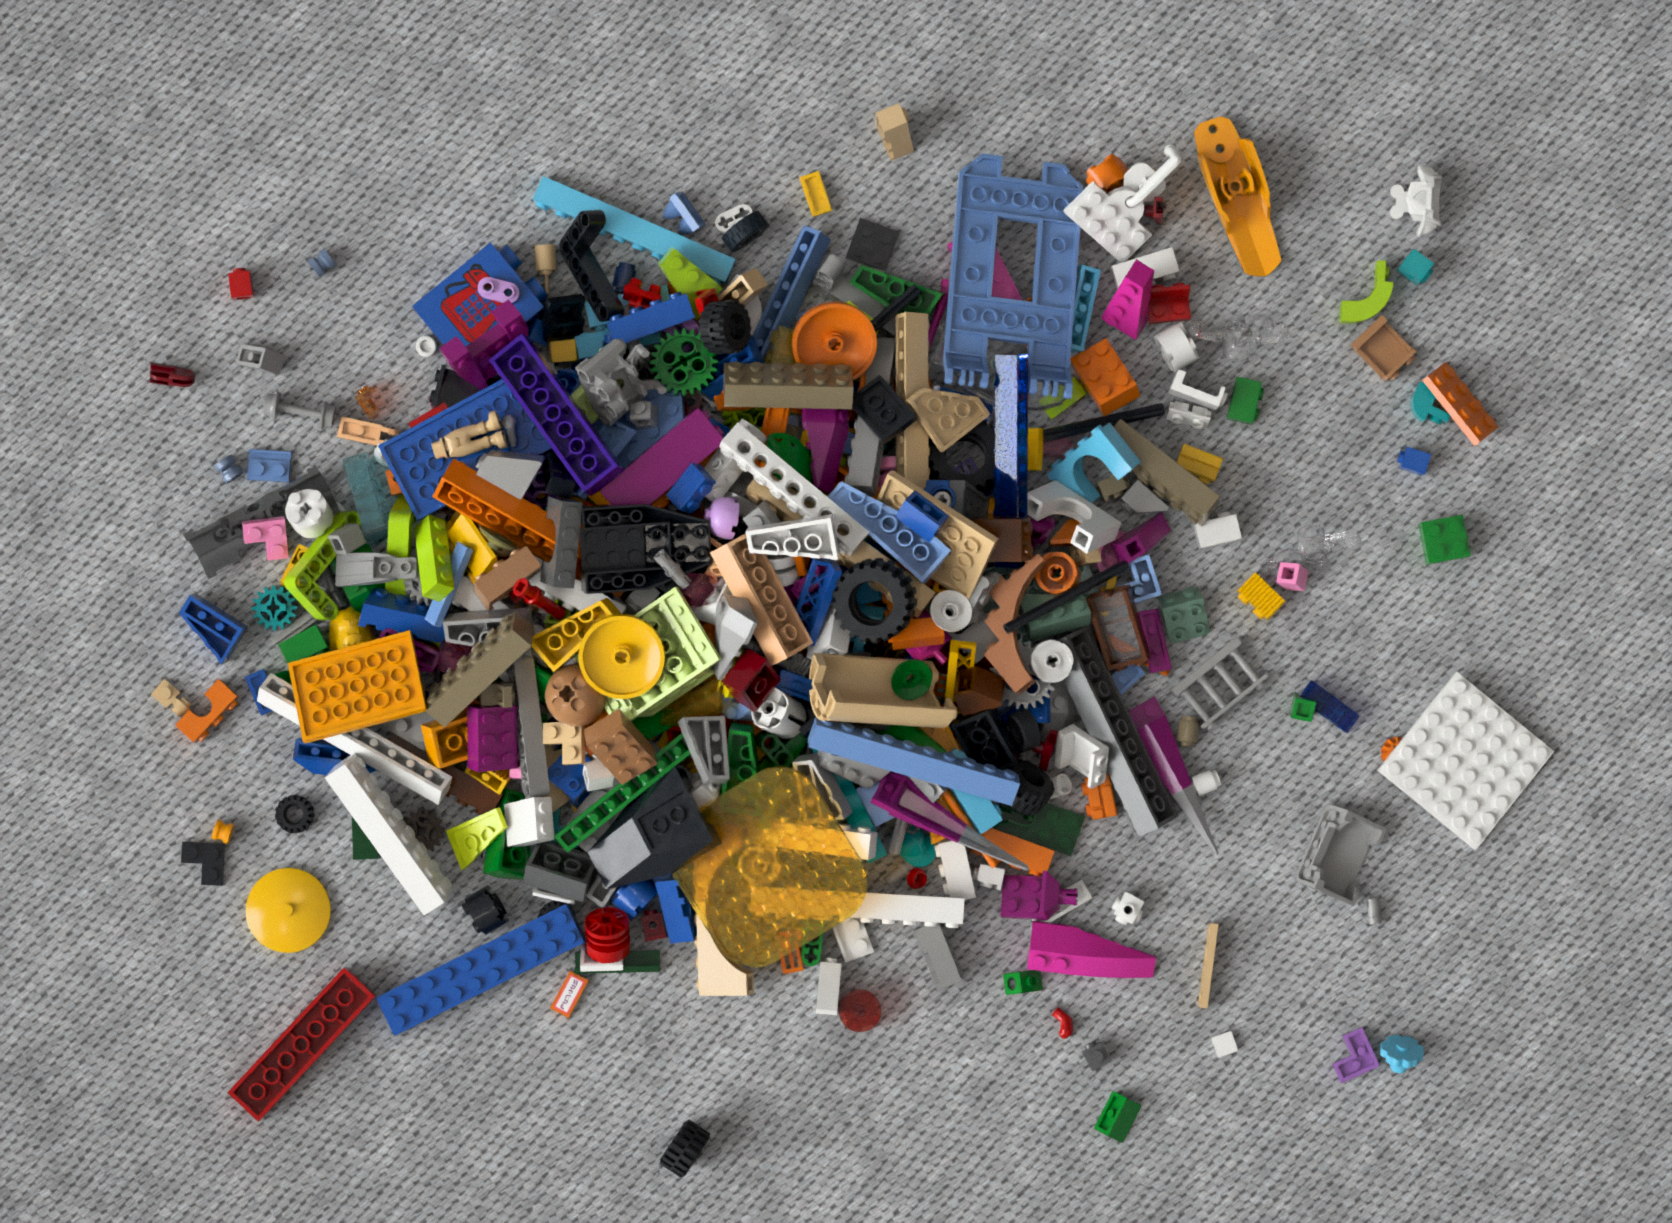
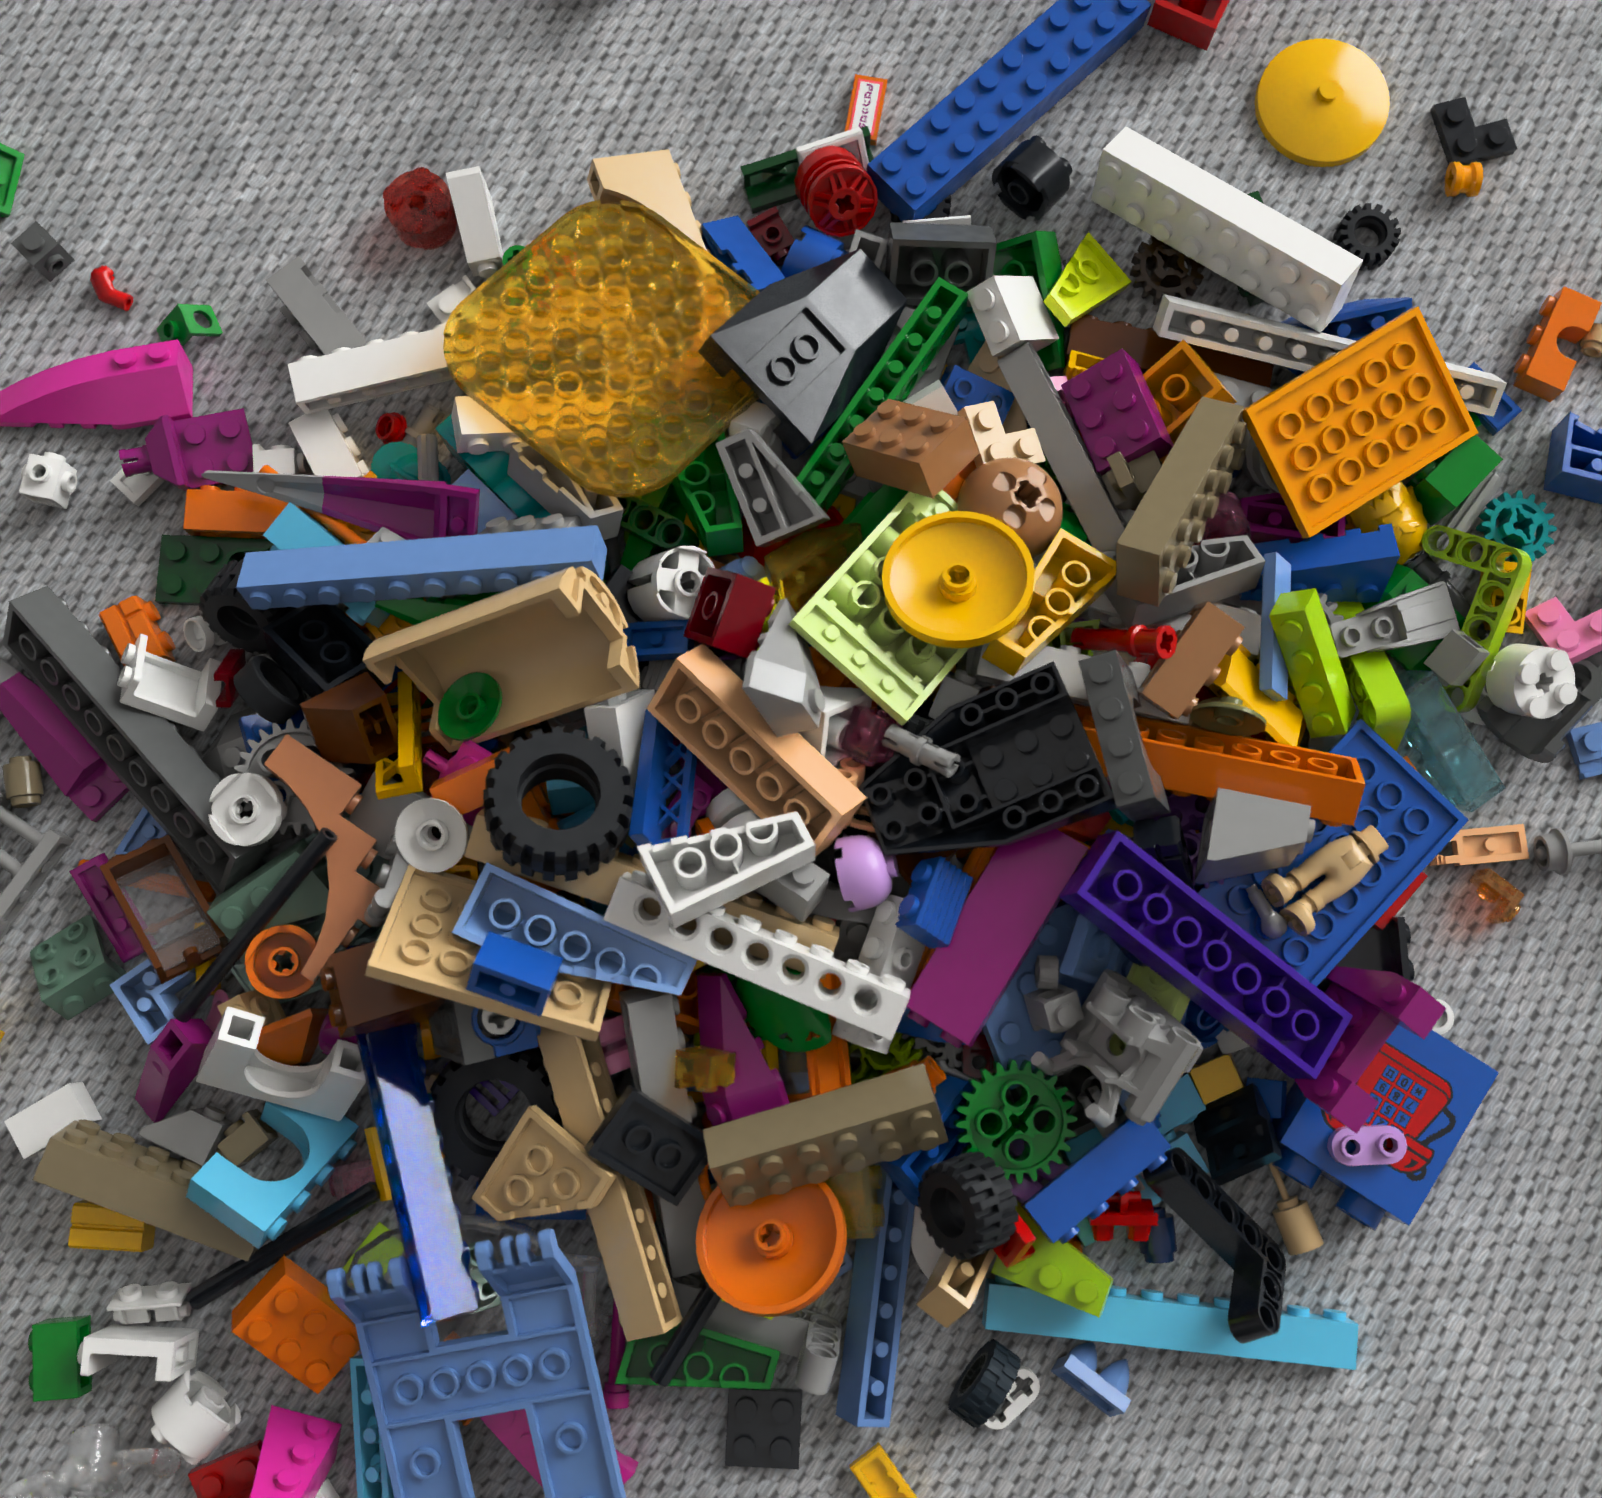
camera: 165 degrees right, 5 degrees down
(641, 434) = (1046, 972): none -> light grey axle
(841, 441) = (704, 1068): none -> clear yellow brick

